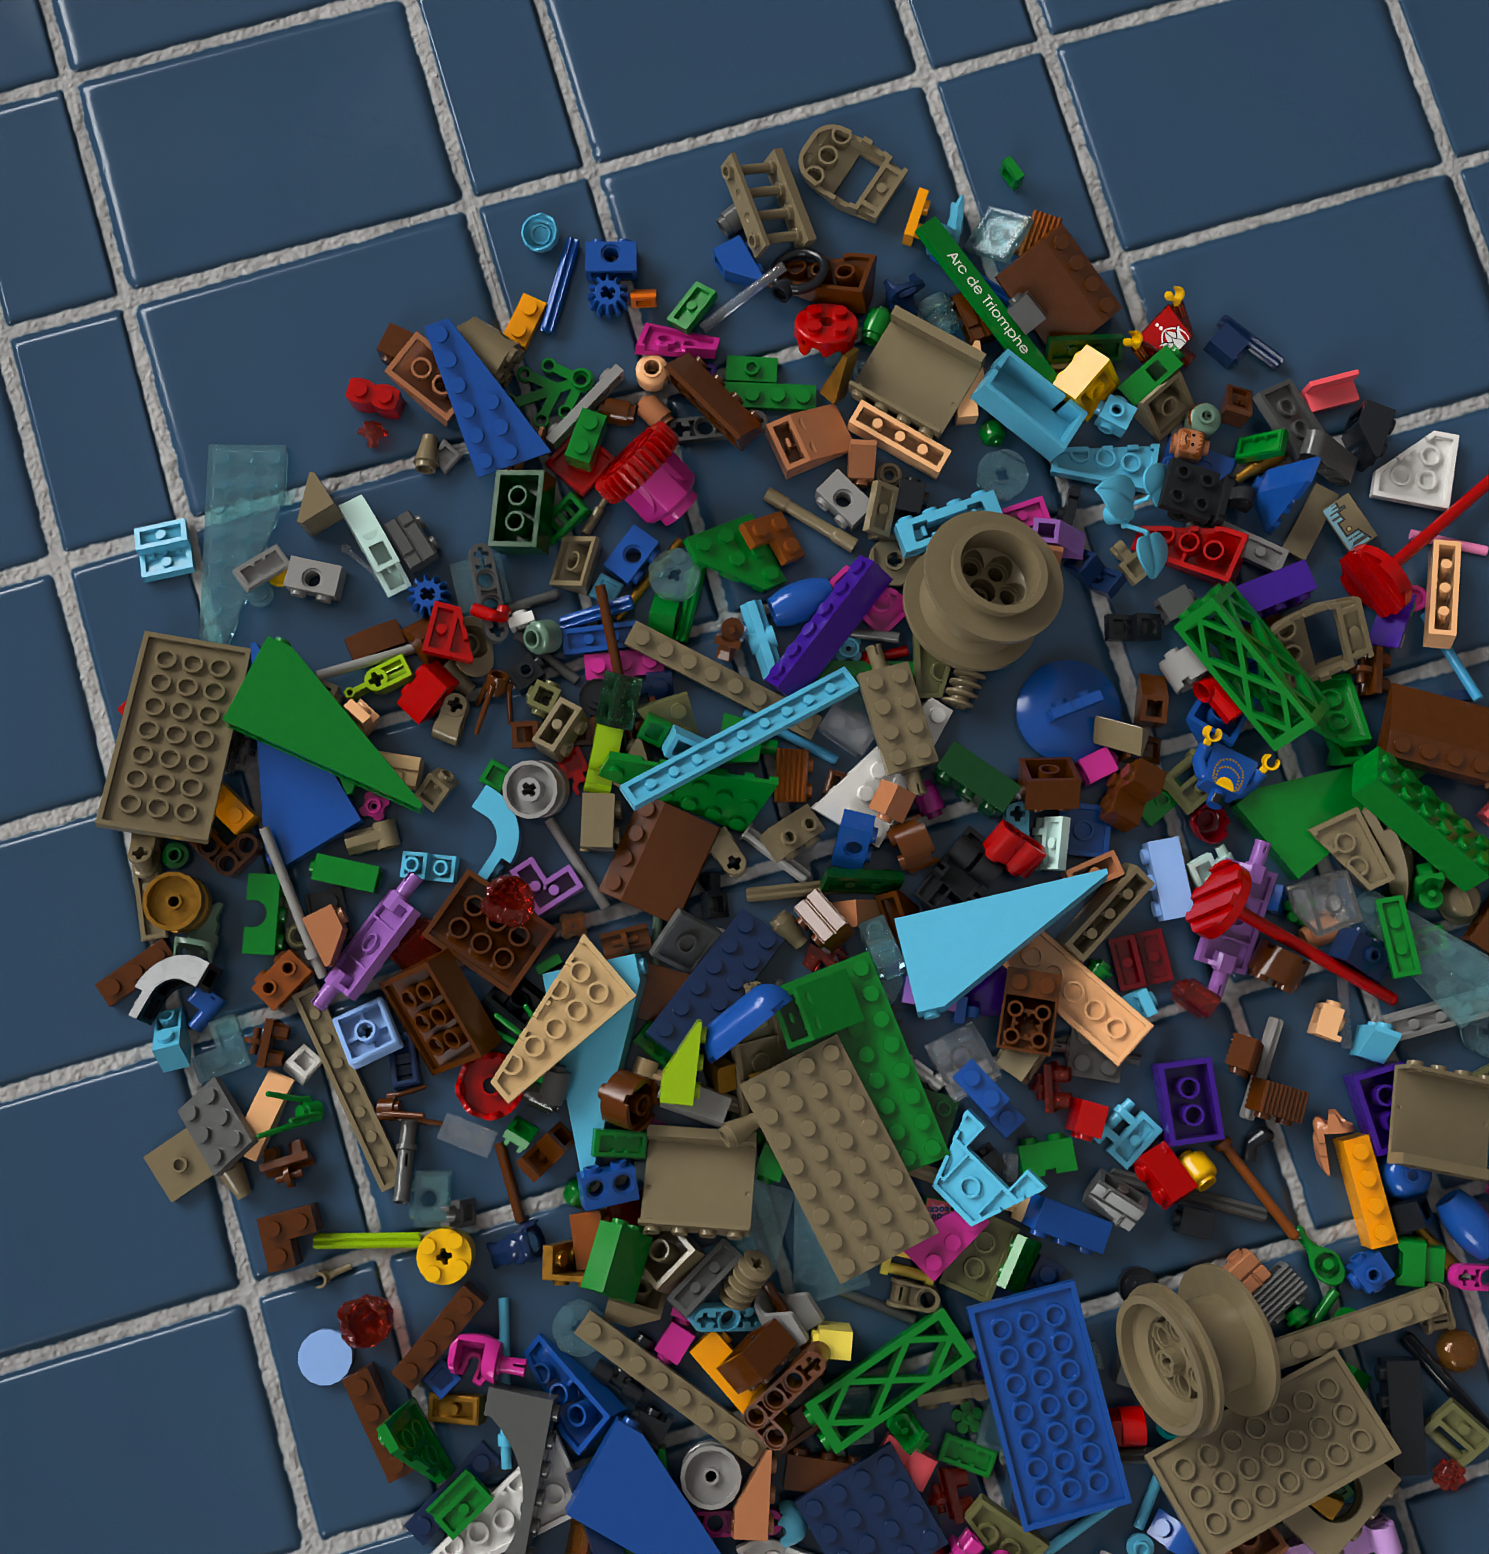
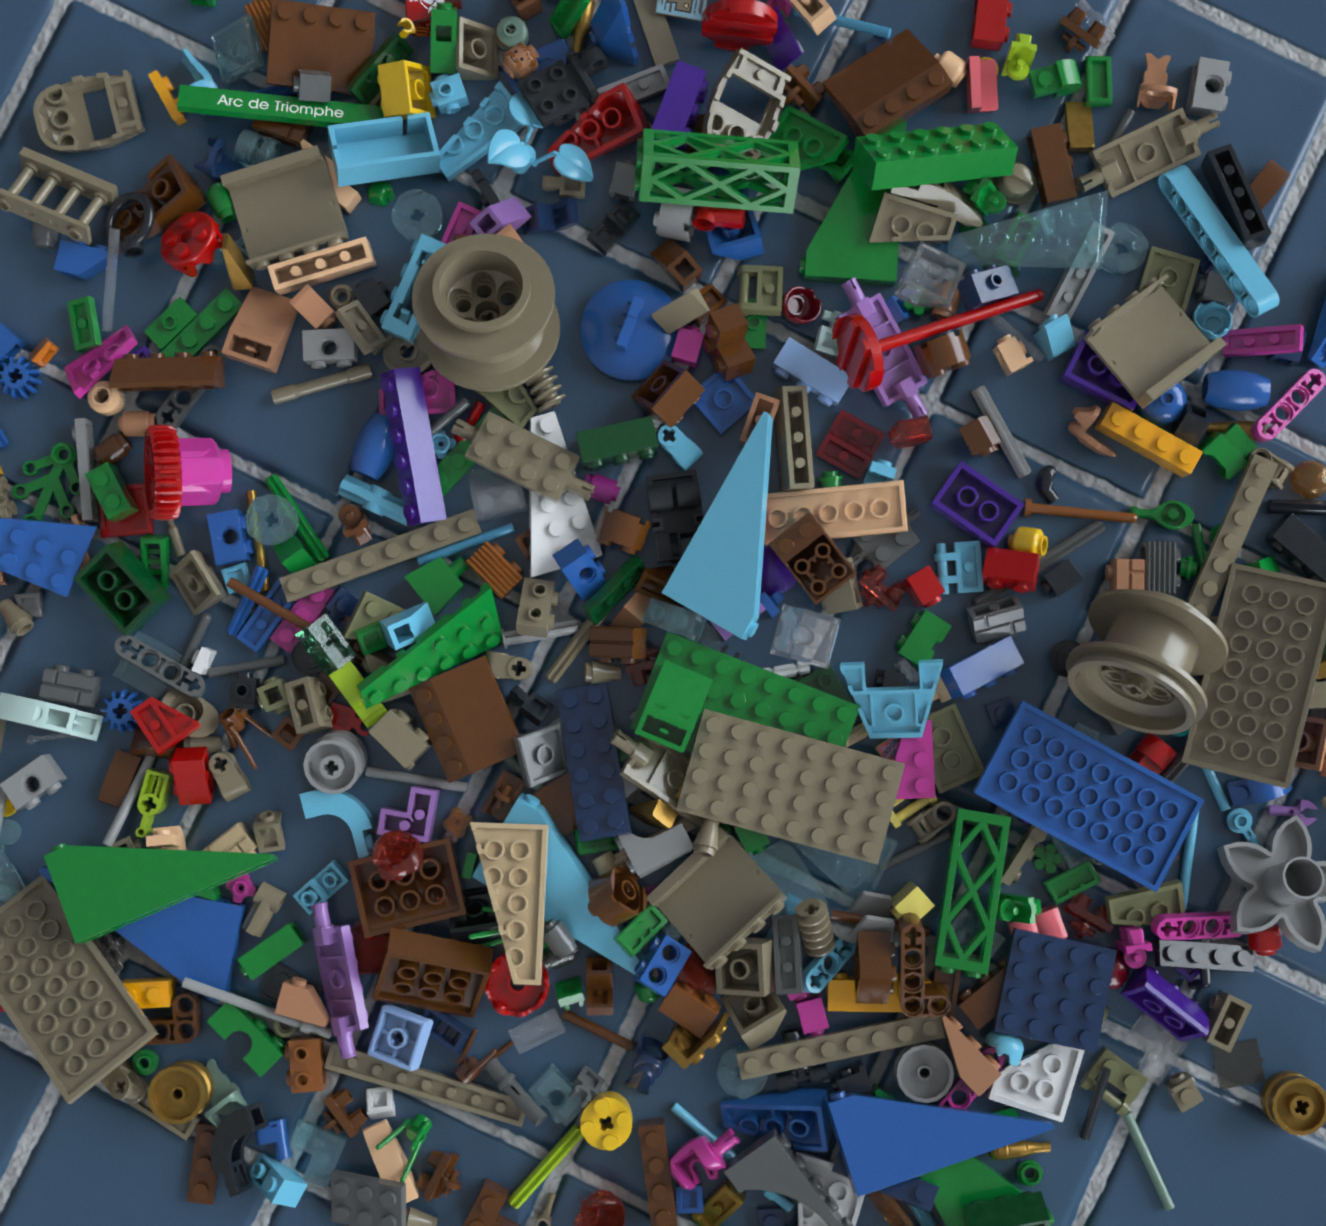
camera: 45 degrees left, 5 degrees up
(483, 612) = (184, 673): red arm -> none
(494, 775) = (298, 781): green tile -> none
(543, 636) = (229, 655): sand green head -> none
(617, 1260) = (719, 1005): green brick -> none
(680, 1073) = (629, 842): lime slope -> none
(728, 553) = (297, 459): green plate -> none
(738, 738) = (432, 584): medium azure plate -> none
(742, 1019) = (632, 766): blue brick -> none
(773, 530) = (308, 417): dark orange plate -> none
(891, 802) = (578, 517): nougat brick -> none
(988, 1098) = (846, 643): blue arch -> none
(1014, 849) = (691, 461): red brick -> none
(1019, 1263) = (977, 726): green plate -> none
(1053, 836) = (711, 432): light aqua plate -> none
(1225, 772) = (775, 261): blue torso -> none
(1276, 1100) = (1033, 442): reddish brown brick -> none
(1368, 1271) = (1203, 490): blue brick -> none
(1397, 937) = (999, 251): green plate -> none

